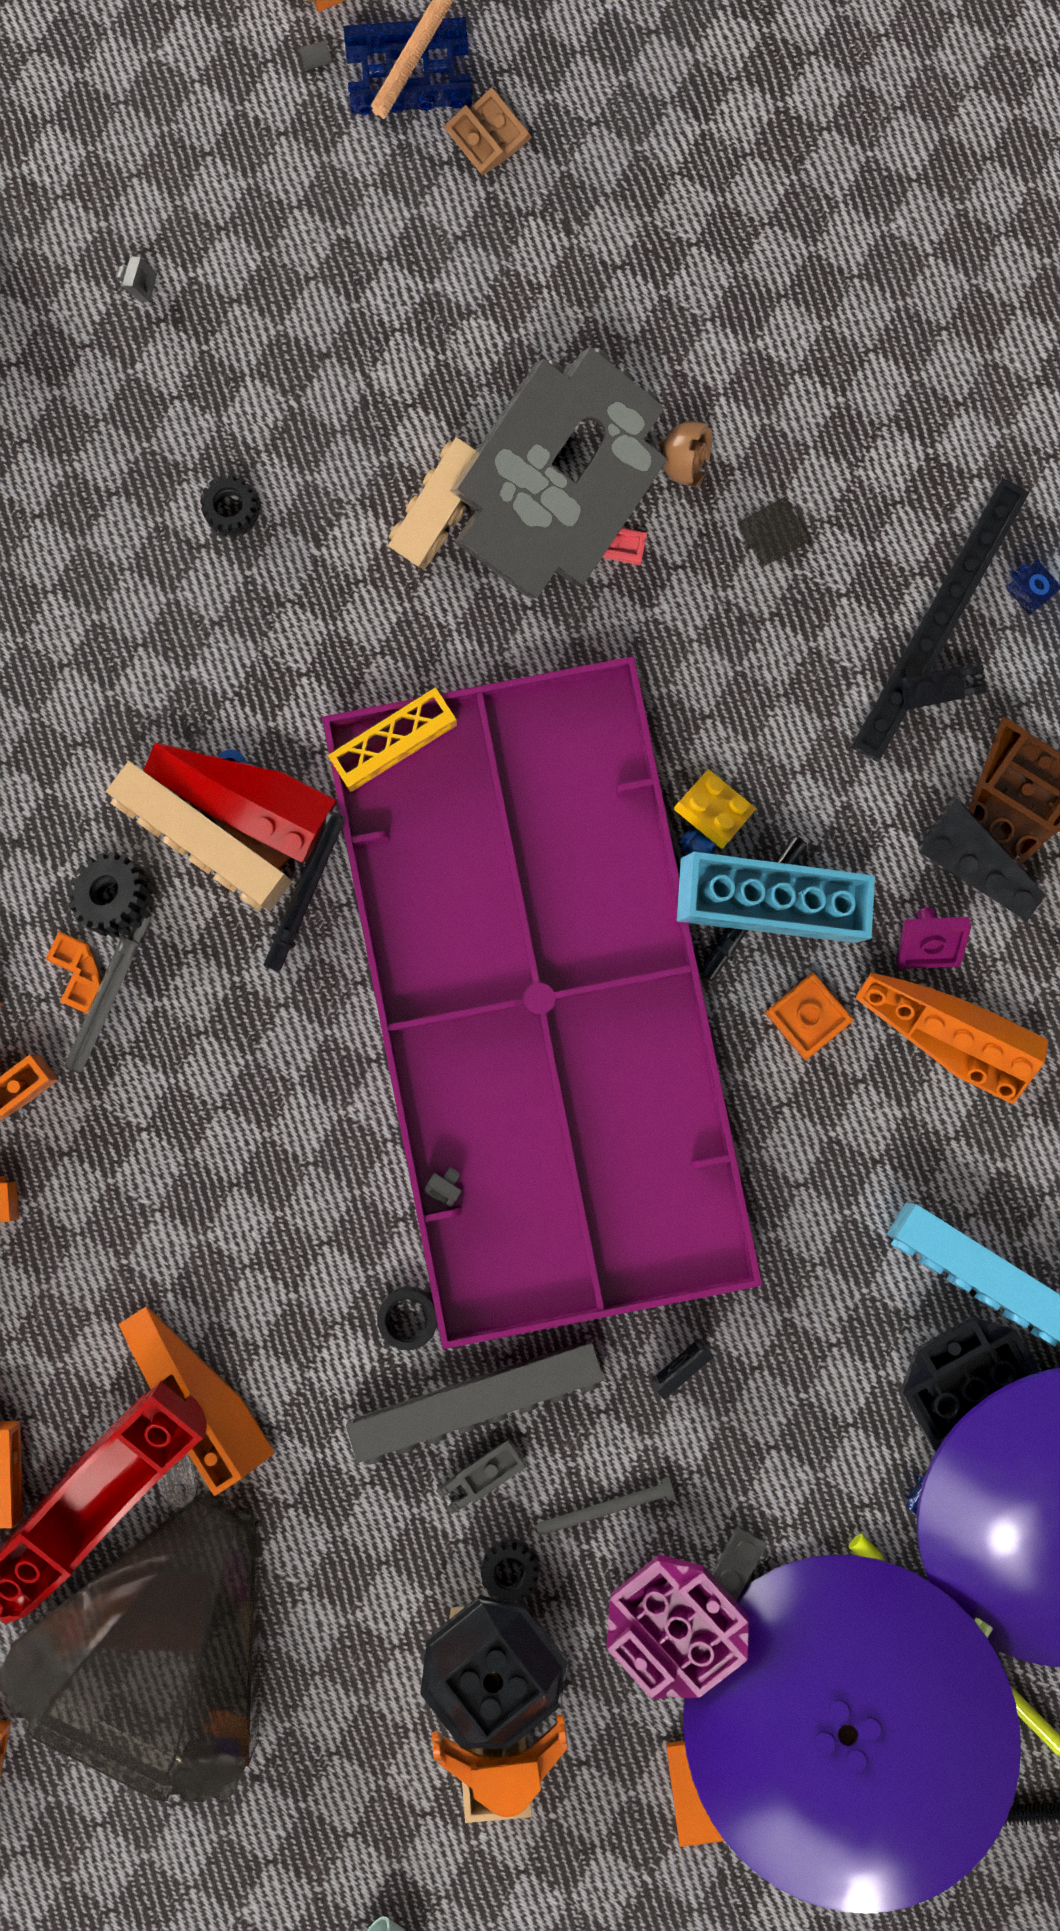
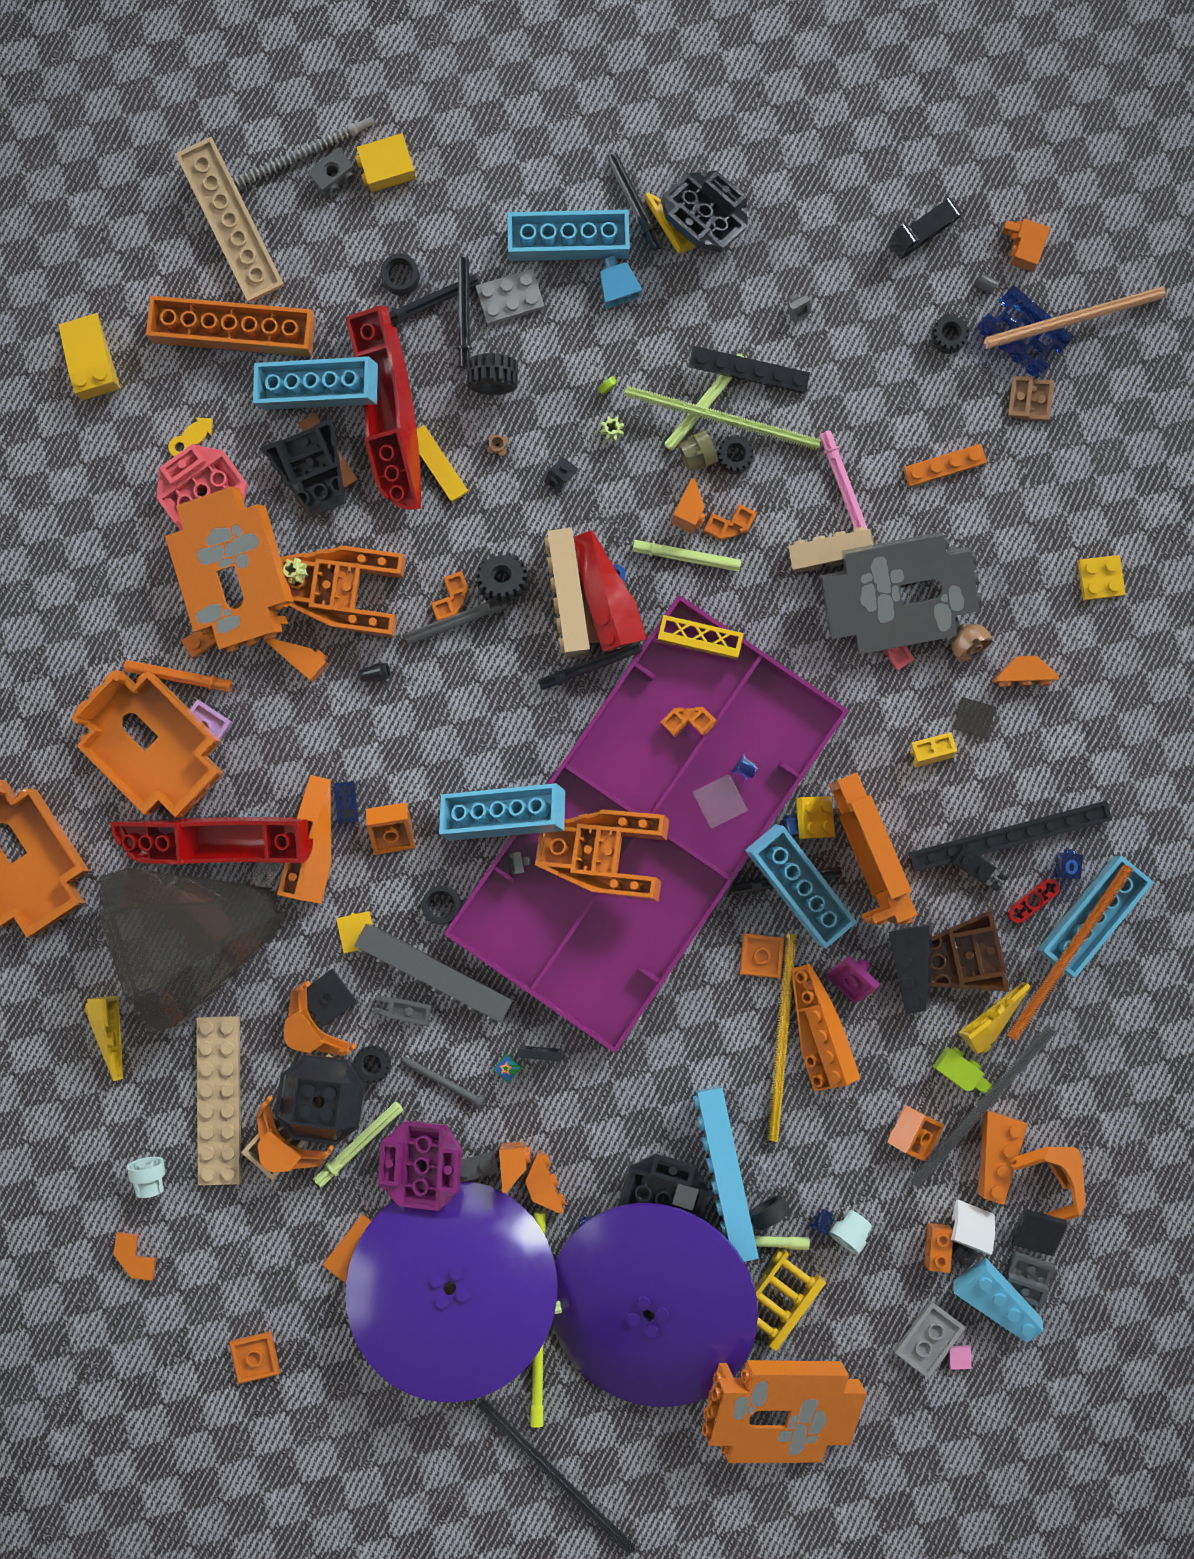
camera: 45 degrees right, 0 degrees up
(14, 569) = (607, 385): none -> lime tile
(59, 608) = (608, 425): none -> yellowish green gear
(60, 718) = (560, 474): none -> black bracket
(76, 1139) = (375, 673): none -> black cone
(139, 482) = (690, 420): none -> yellowish green axle
(151, 399) = (749, 369): none -> black plate
(174, 1837) = (105, 1023): none -> yellow wedge
(175, 478) = (721, 417): none -> yellowish green axle
(182, 84) = (909, 238): none -> black beam
(185, 541) = (698, 451): none -> olive piece
(189, 1313) = (346, 802): none -> clear blue tile
(242, 616) = (690, 509): none -> orange slope
(266, 1292) = (390, 828): none -> orange slope
(287, 668) = (686, 555): none -> yellowish green axle
(299, 600) = (724, 529): none -> orange tile
(329, 130) = (953, 322): none -> black tyre
(334, 1445) = (351, 928): none -> yellow piece
(371, 1149) = (502, 812): none -> medium azure brick
(372, 417) = (842, 479): none -> bright pink axle
(382, 1786) = (218, 1100): none -> tan plate
(386, 1547) = (329, 997): none -> black plate
(396, 1615) = (303, 1033): none -> orange piece
(461, 848) = (680, 718): none -> orange tile
(467, 294) = (945, 465): none -> orange plate
(507, 1093) = (590, 852): none -> orange wedge
(584, 1674) = (358, 1144): none -> yellowish green axle
(586, 831) = (745, 767): none -> clear blue brick
(595, 895) = (720, 801): none -> clear tile
(660, 1420) = (507, 1068): none -> tile
(755, 248) = (1101, 577): none -> yellow plate
(766, 608) = (933, 749): none -> yellow hinge
(771, 1517) = (513, 1162): none -> orange slope
(777, 427) = (1025, 671): none -> orange slope
(819, 781) = (873, 853): none -> orange panel
(829, 1508) = (543, 1184): none -> orange slope
(921, 1082) = (782, 1038): none -> yellow axle
(996, 1363) = (685, 1196): none -> dark grey tile
(1027, 640) = (1041, 902): none -> red beam

